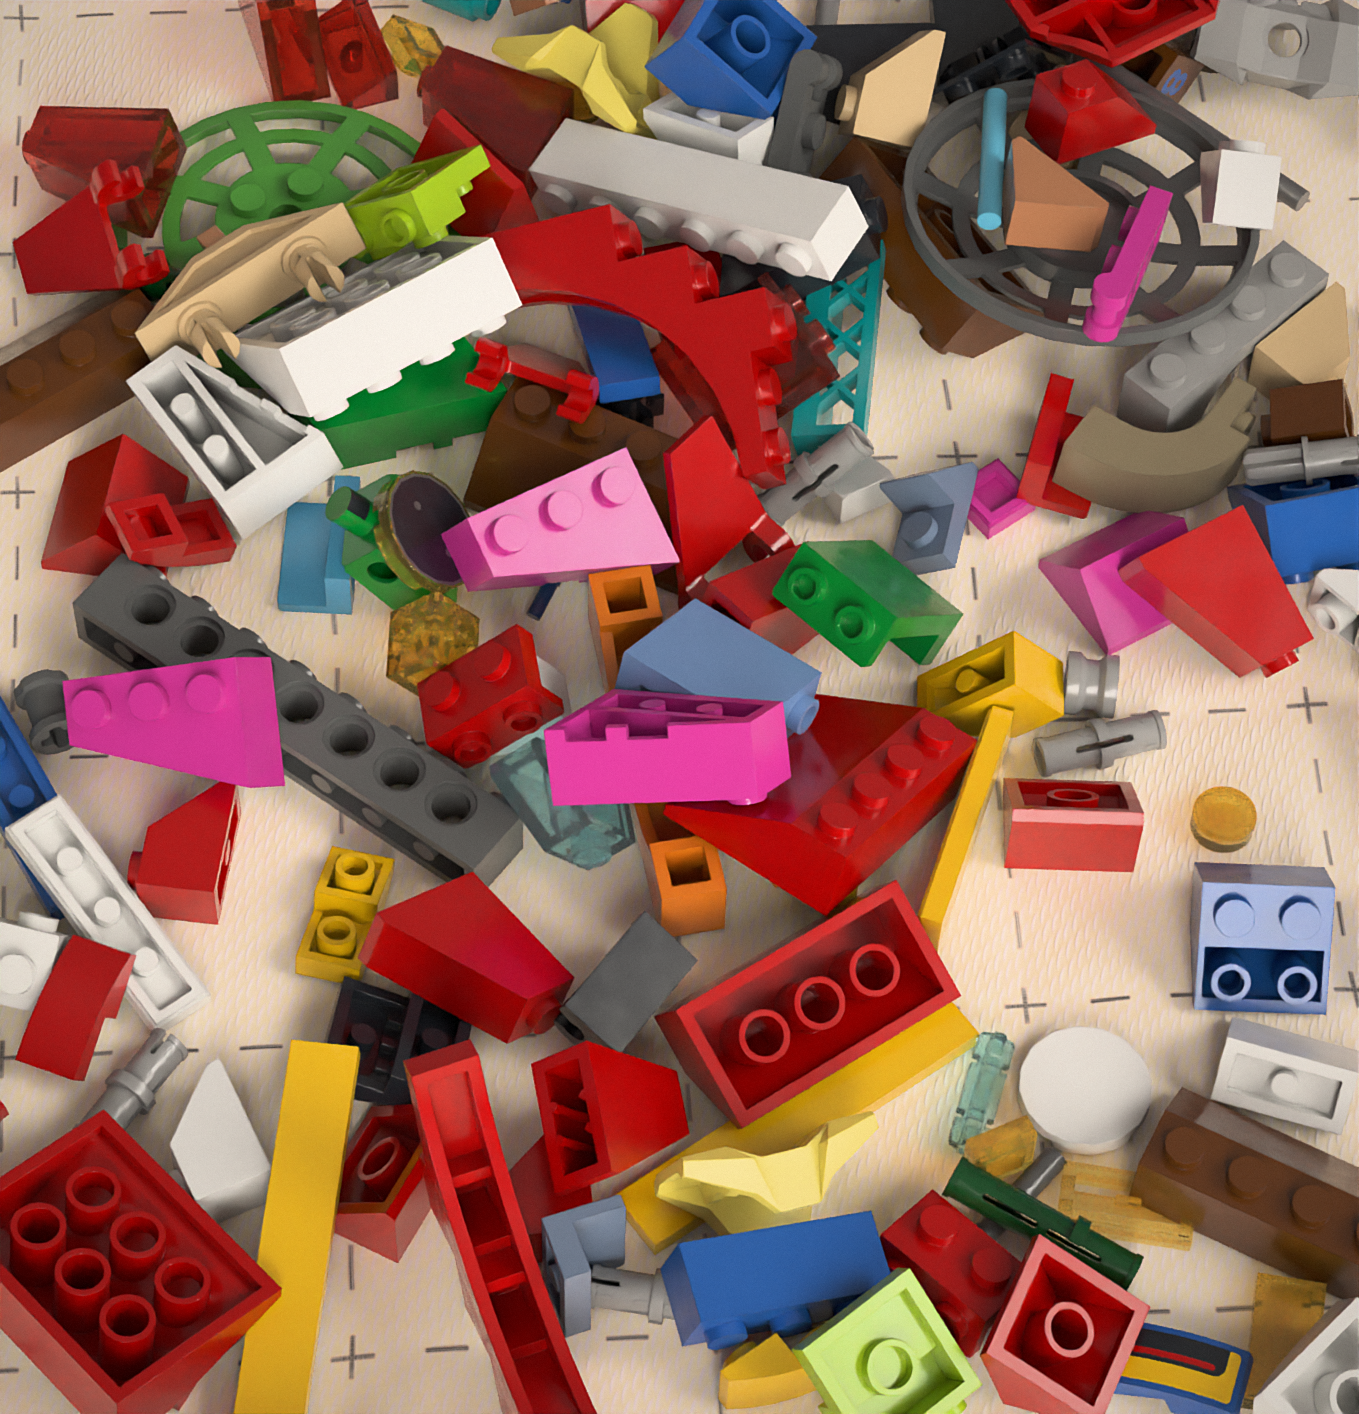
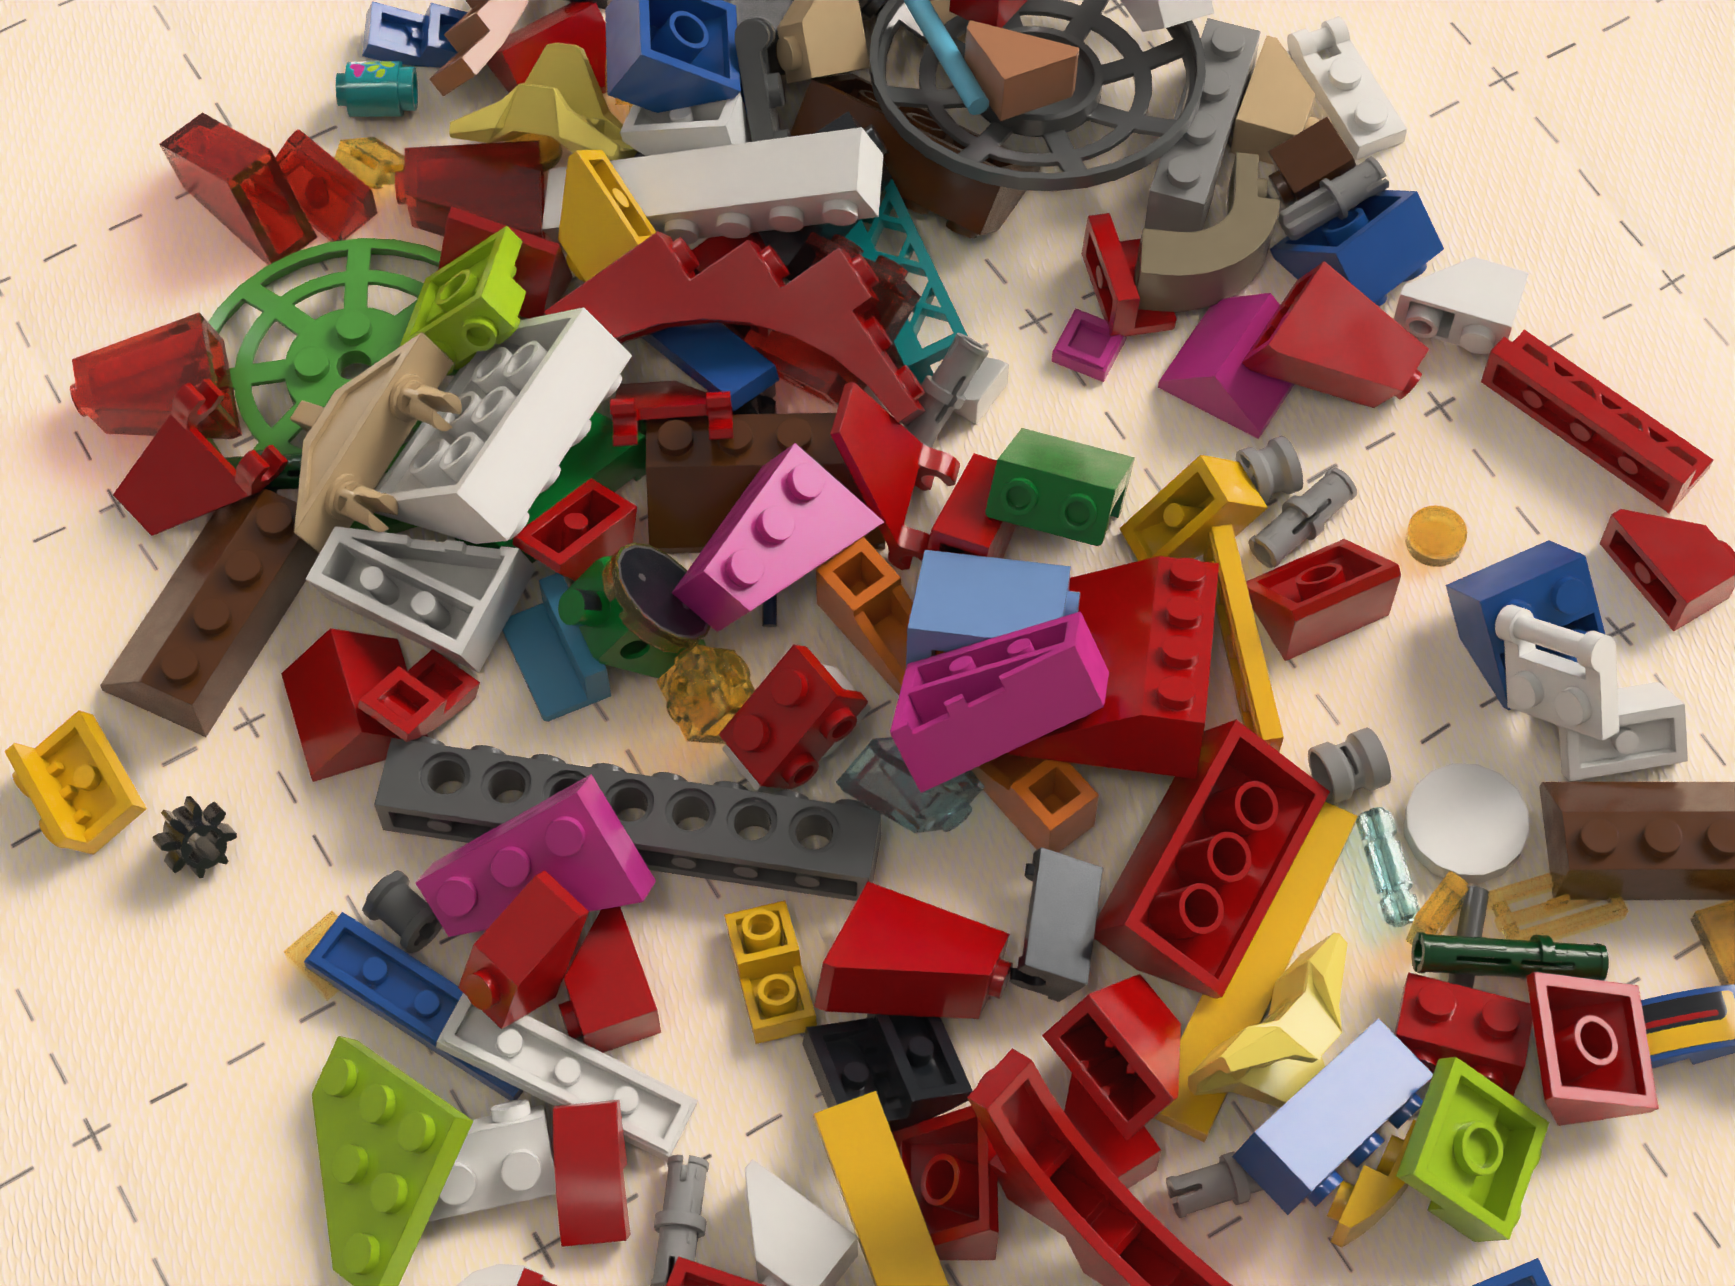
camera: 25 degrees left, 5 degrees up
(118, 783) = (524, 952): none -> red slope
(393, 443) = (579, 530): none -> red slope
(571, 1248) = (1161, 1188): sand blue panel -> none
(575, 166) = (598, 215): none -> yellow slope
(933, 516) = (1055, 383): sand blue slope -> none
(1012, 988) = (1350, 765): none -> light grey wheel
(1126, 266) = (1118, 94): dark pink plate -> none
(1234, 995) = (1555, 688): none -> white plate

